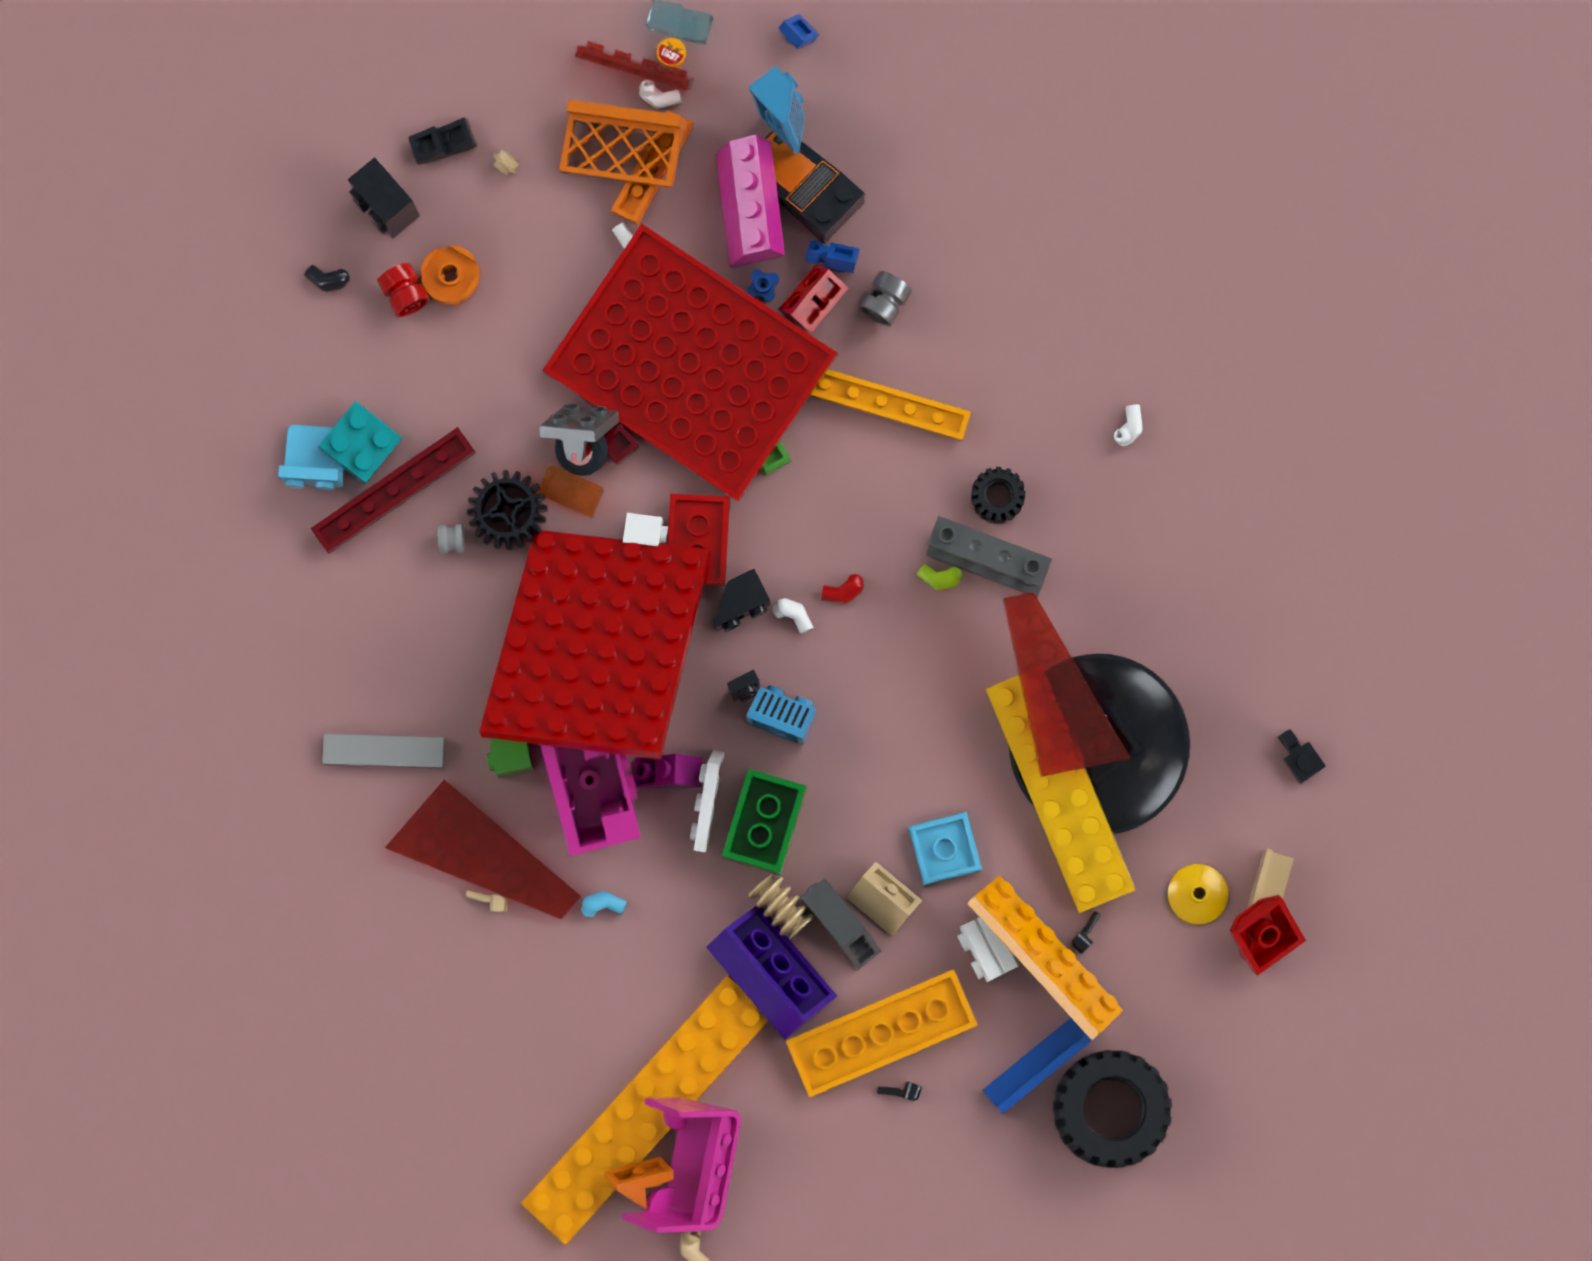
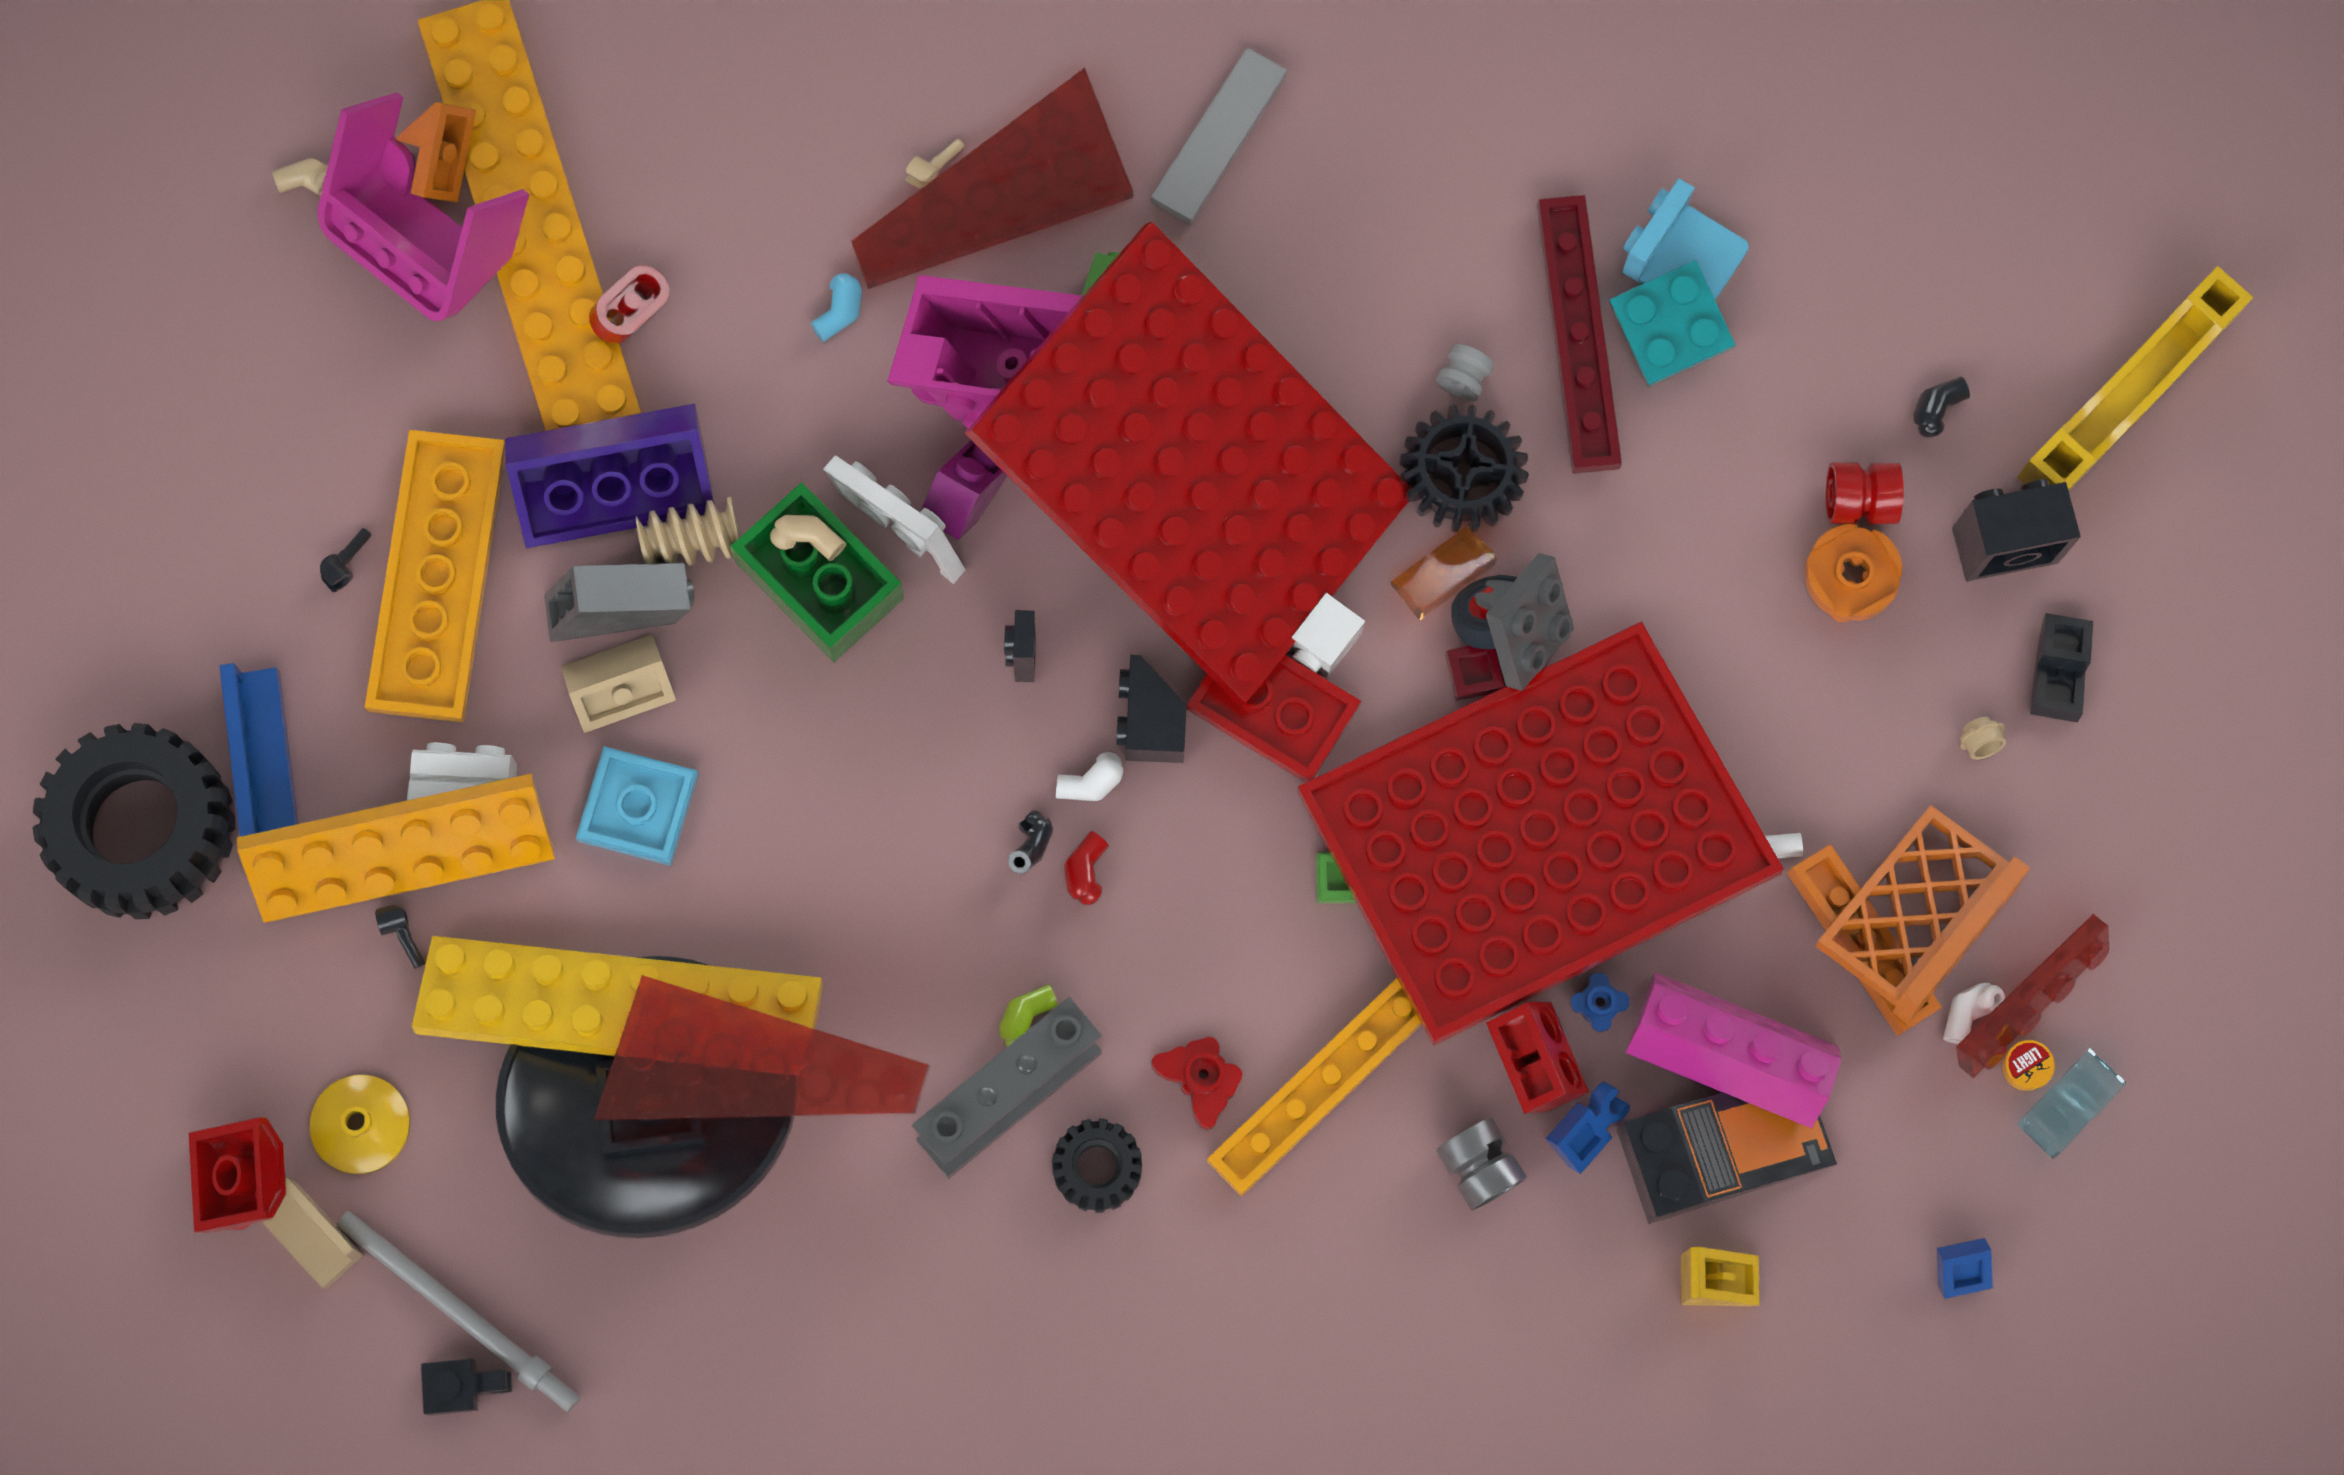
camera: 110 degrees right, 5 degrees down
(294, 187) = (2139, 382): none -> yellow arch
(671, 1019) = (626, 306): none -> plate
(749, 834) = (809, 529): none -> tan arm
(780, 106) = (1855, 1168): dark azure slope -> none
(781, 715) = (953, 677): dark azure slope -> none
(846, 623) = (1034, 847): none -> black arm
(874, 151) = (1719, 1278): none -> yellow slope
(919, 479) = (1208, 1095): none -> red animal
(1132, 428) = (1085, 1422): white arm -> none
(1271, 723) = (532, 1371): none -> light grey bar

